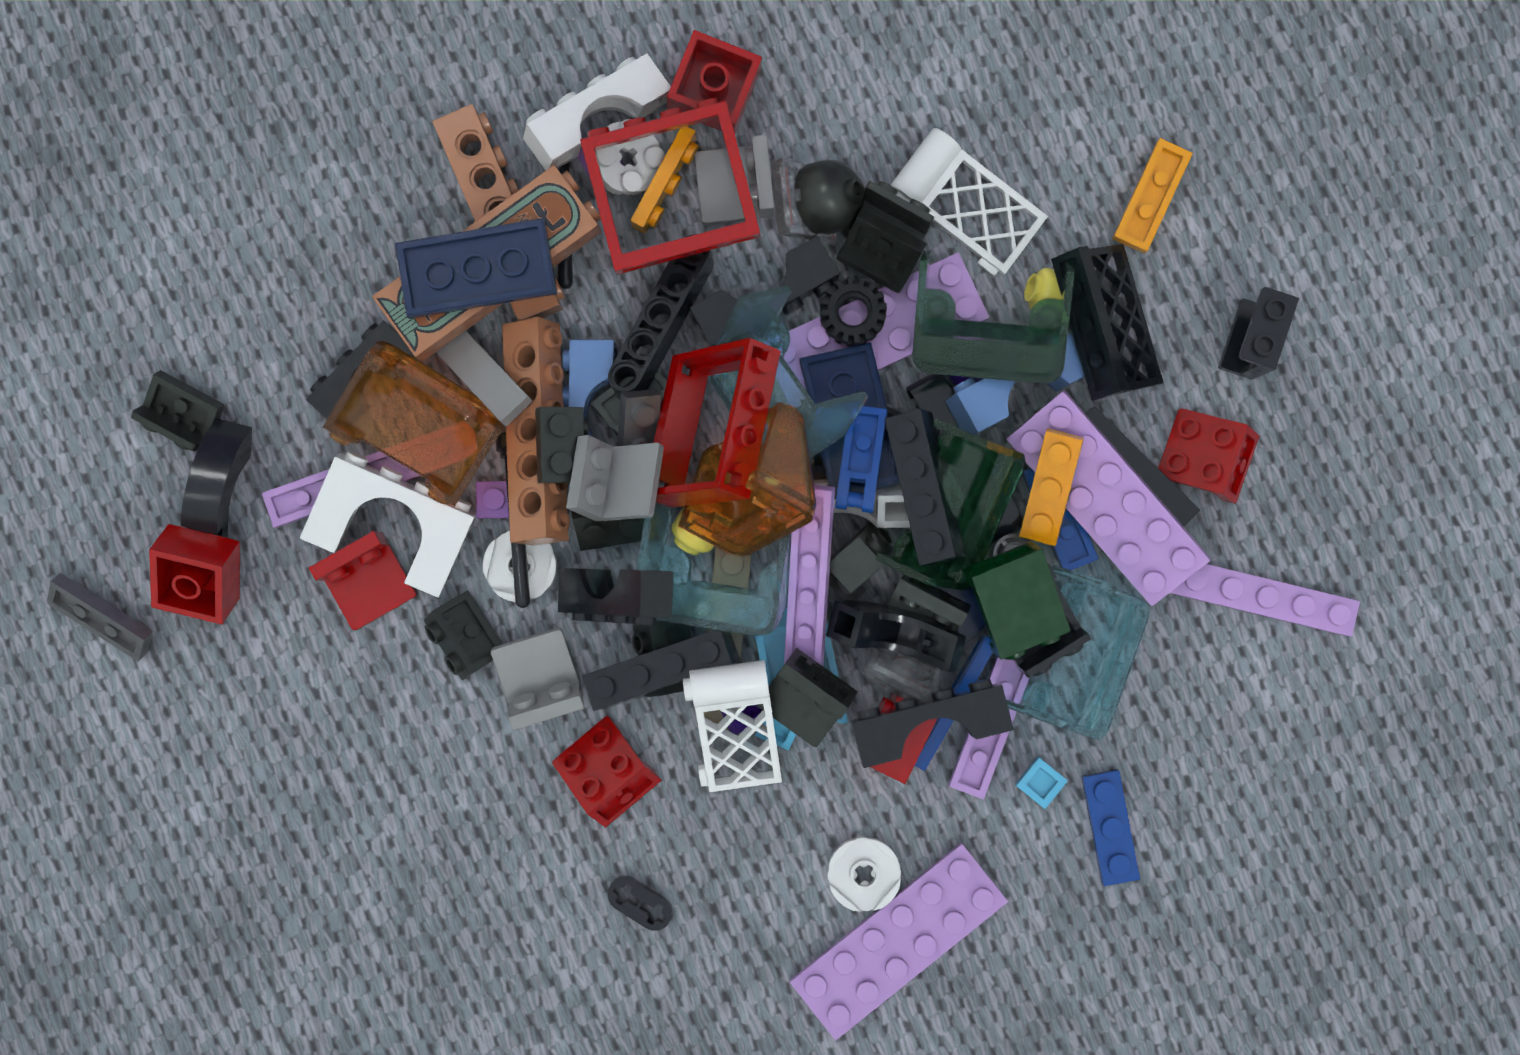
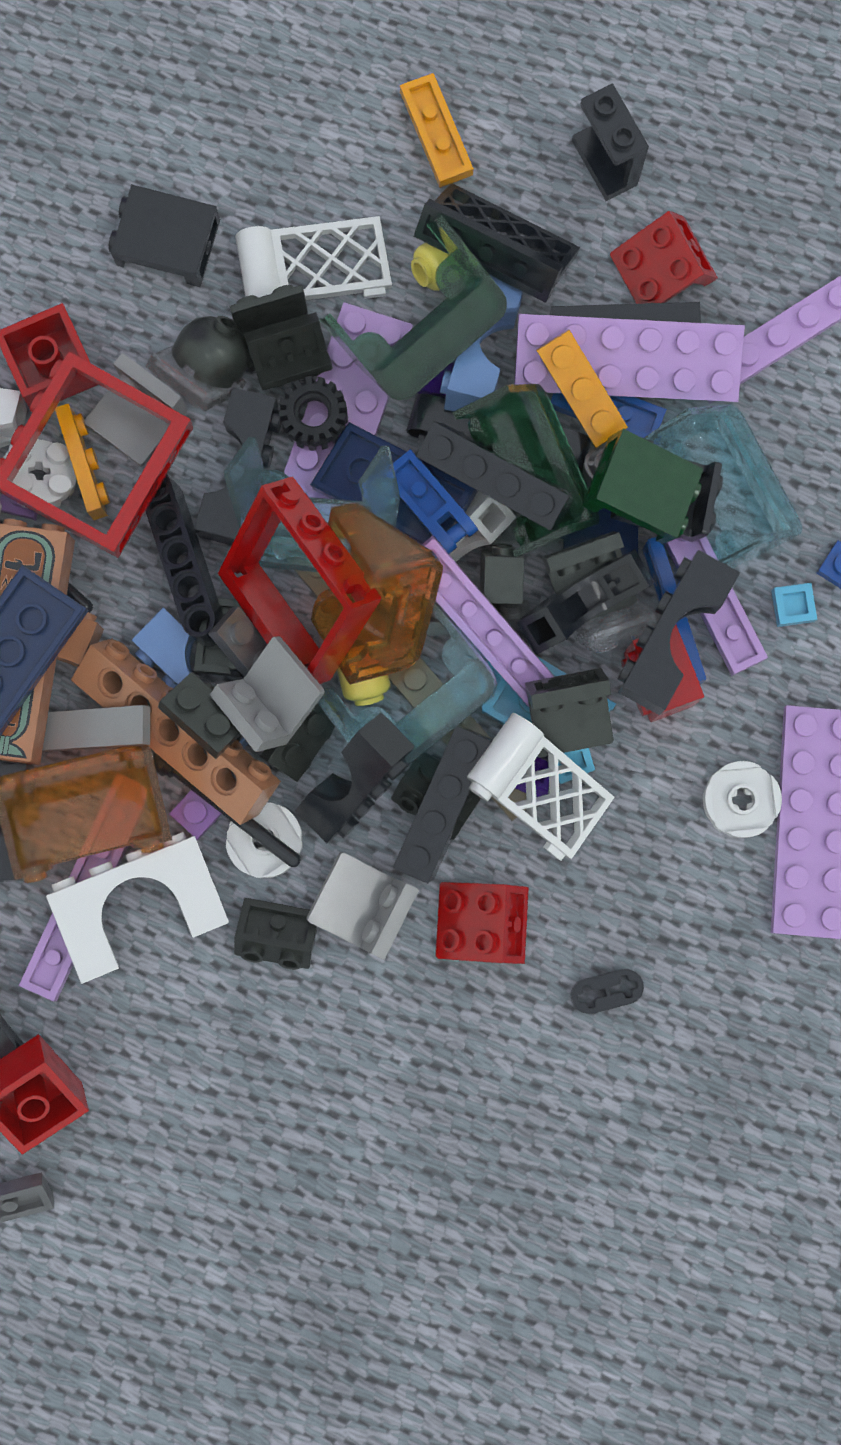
camera: 50 degrees left, 5 degrees down
(365, 579) = (161, 968): red bracket -> none
(885, 76) = (165, 233): none -> black panel

